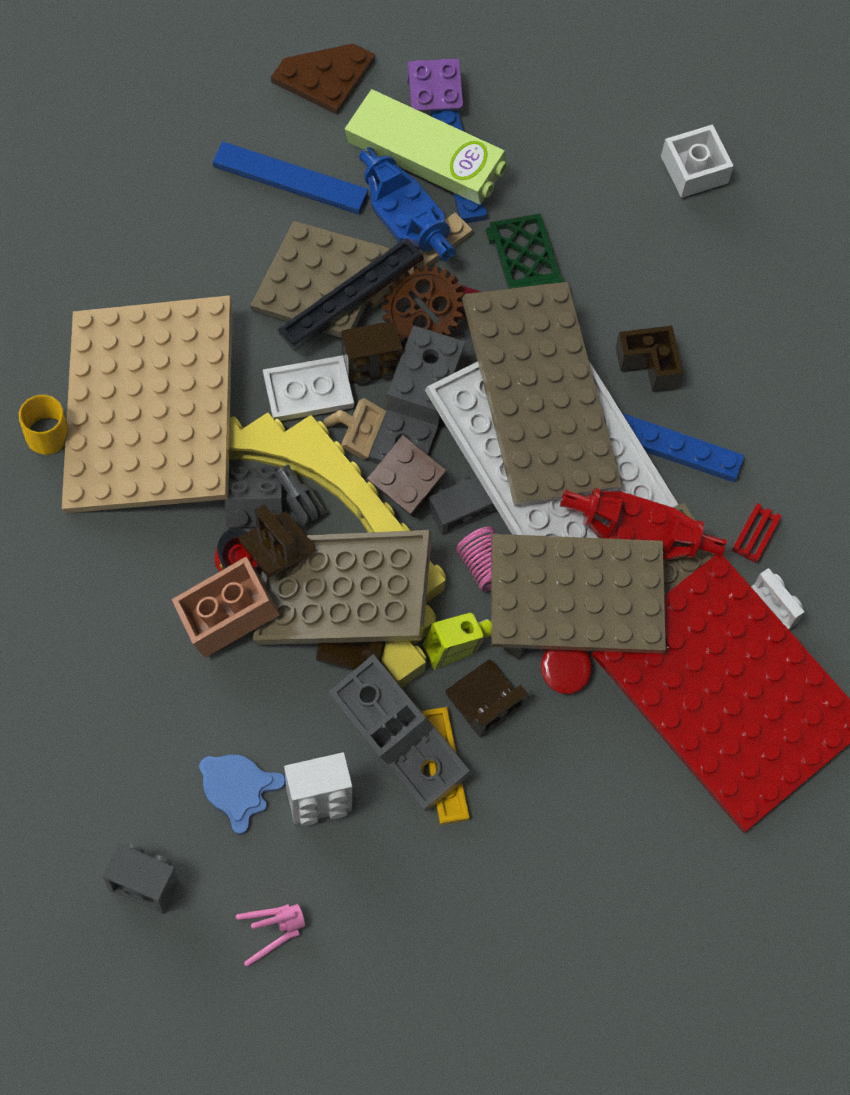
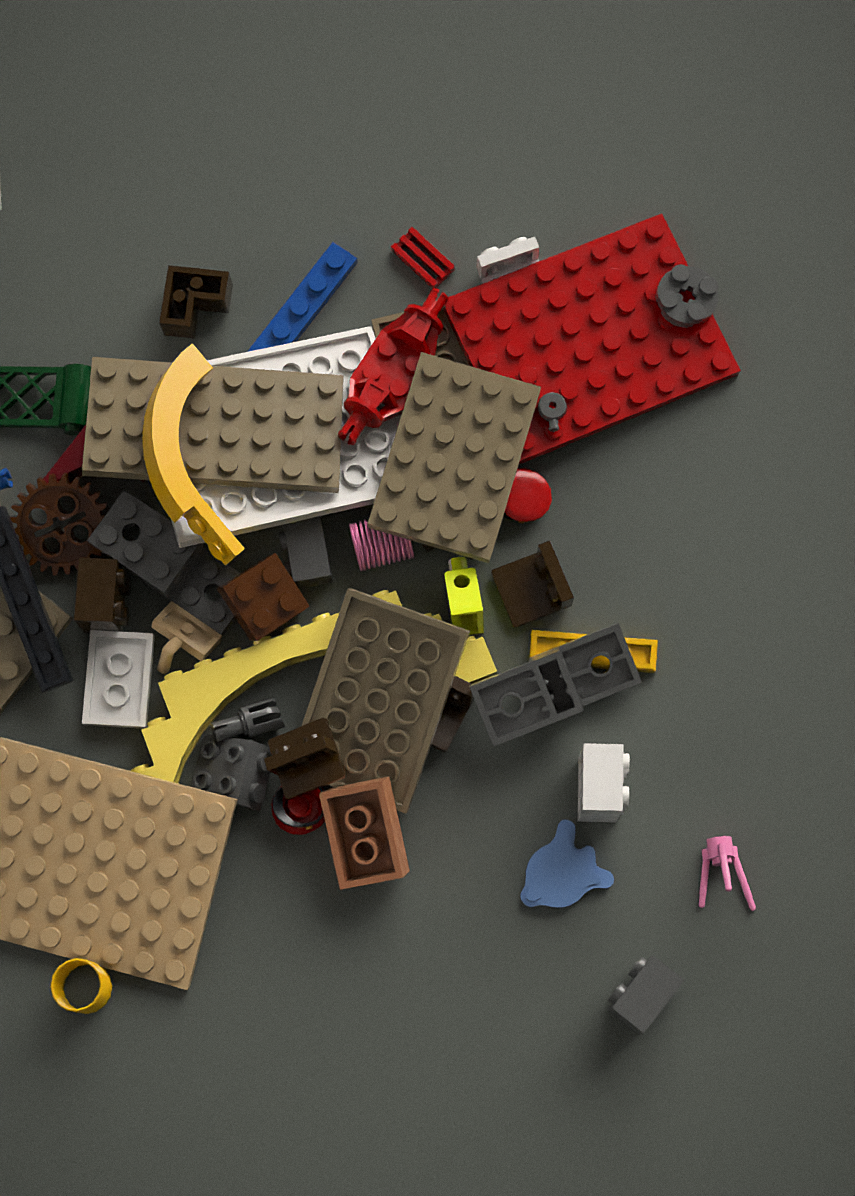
camera: 65 degrees left, 10 degrees up
(540, 339) = (165, 461): none -> yellow arch
(645, 670) = (549, 414): none -> dark grey piece
(785, 771) = (684, 279): none -> dark grey plate

